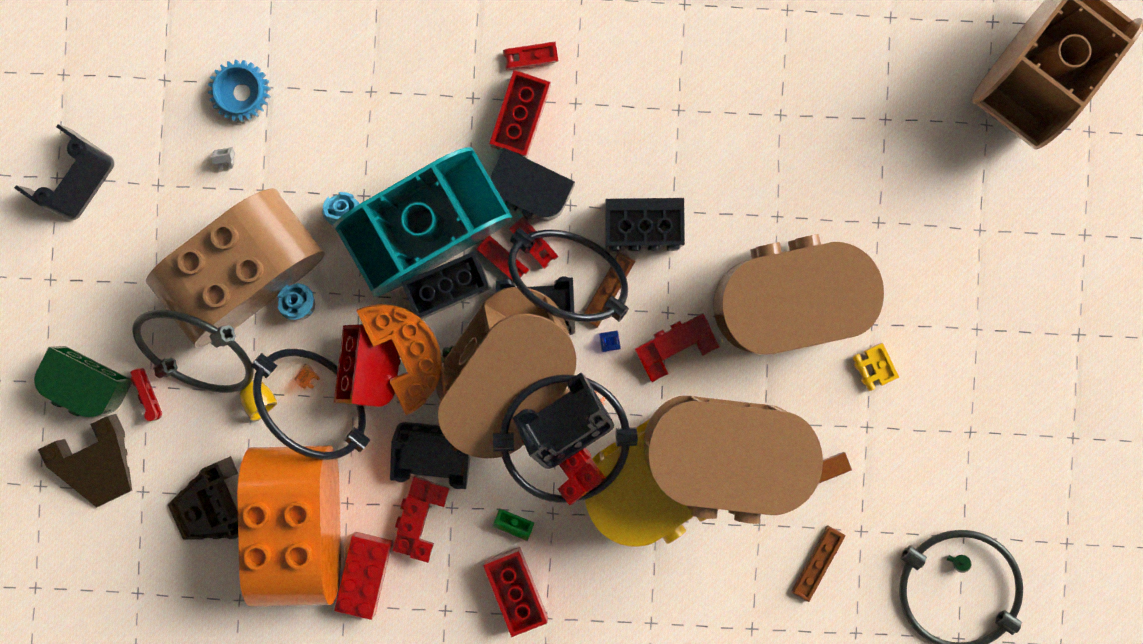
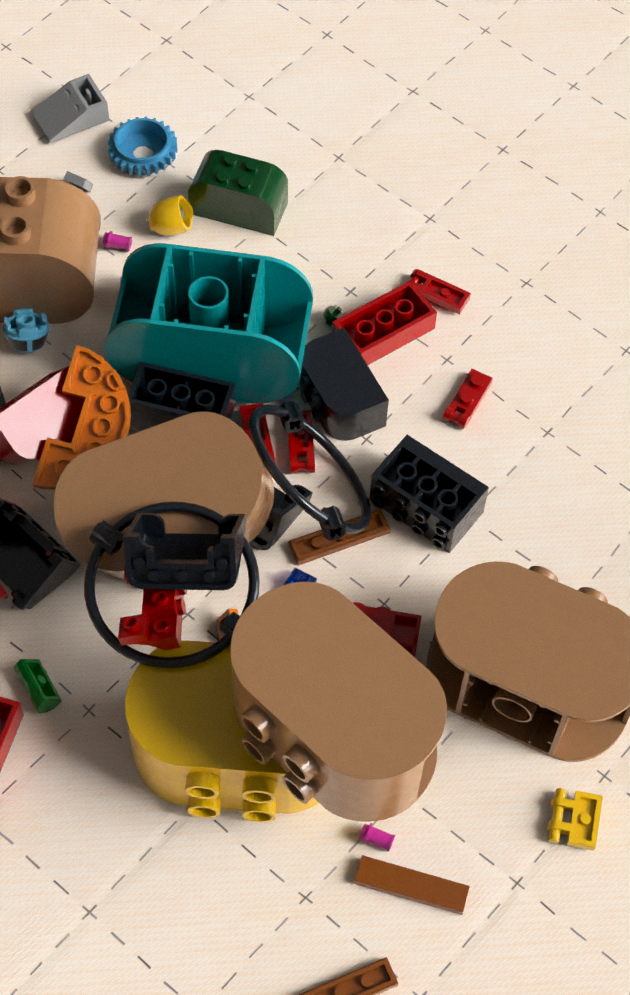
camera: 40 degrees right, 30 degrees down
(164, 99) = (72, 109): none -> light grey slope
(290, 182) = (116, 241): none -> dark pink pin
(307, 141) = (166, 216): none -> yellow piece
(340, 82) = (239, 191): none -> dark green brick
(480, 130) = (331, 314): none -> dark green piece
(612, 125) = (468, 398): none -> red plate

